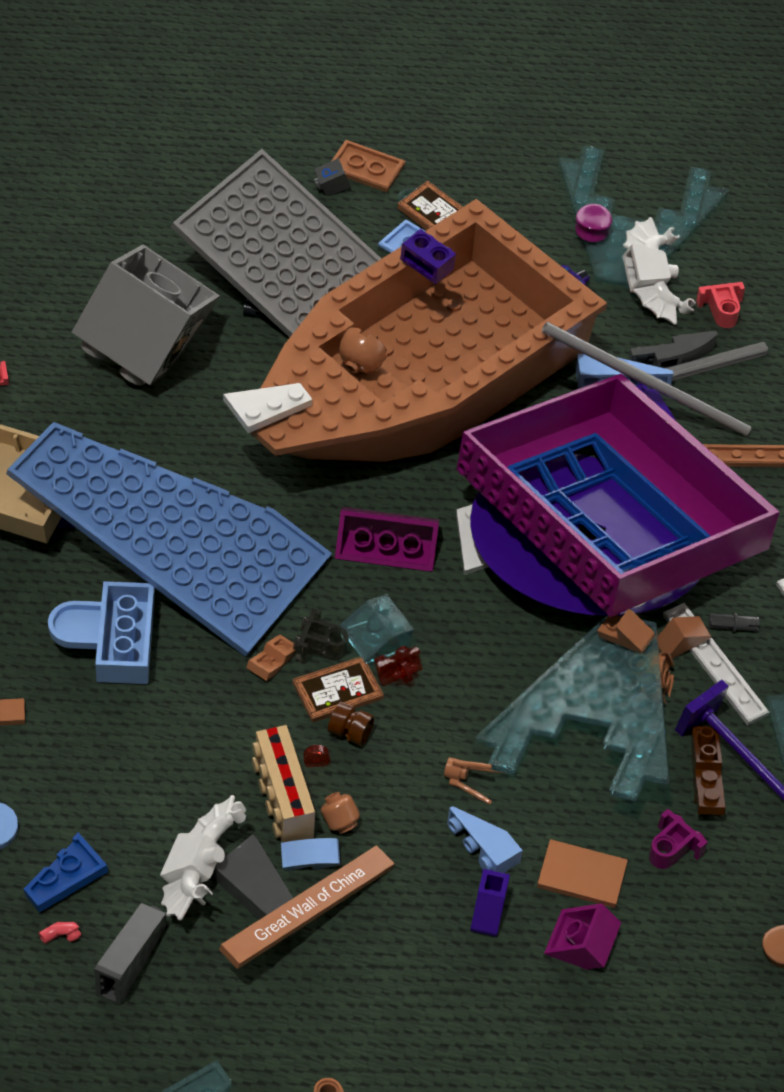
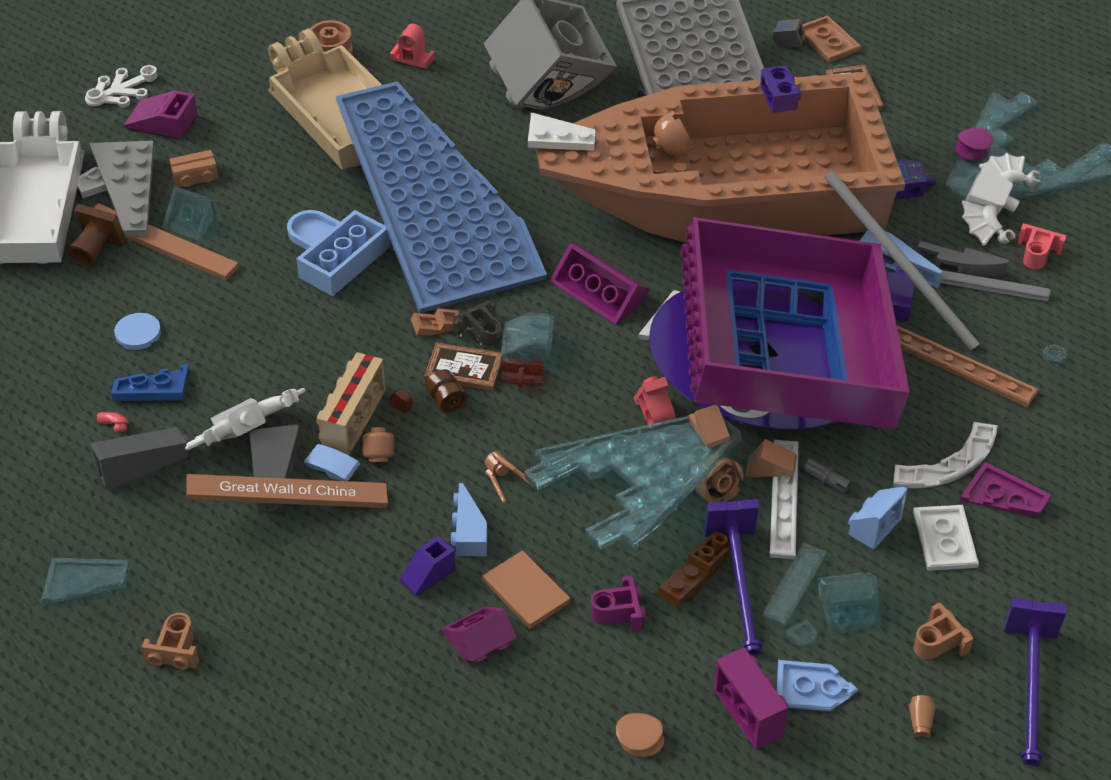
camera: 40 degrees right, 5 degrees down
(542, 632) = (655, 400): none -> coral pin

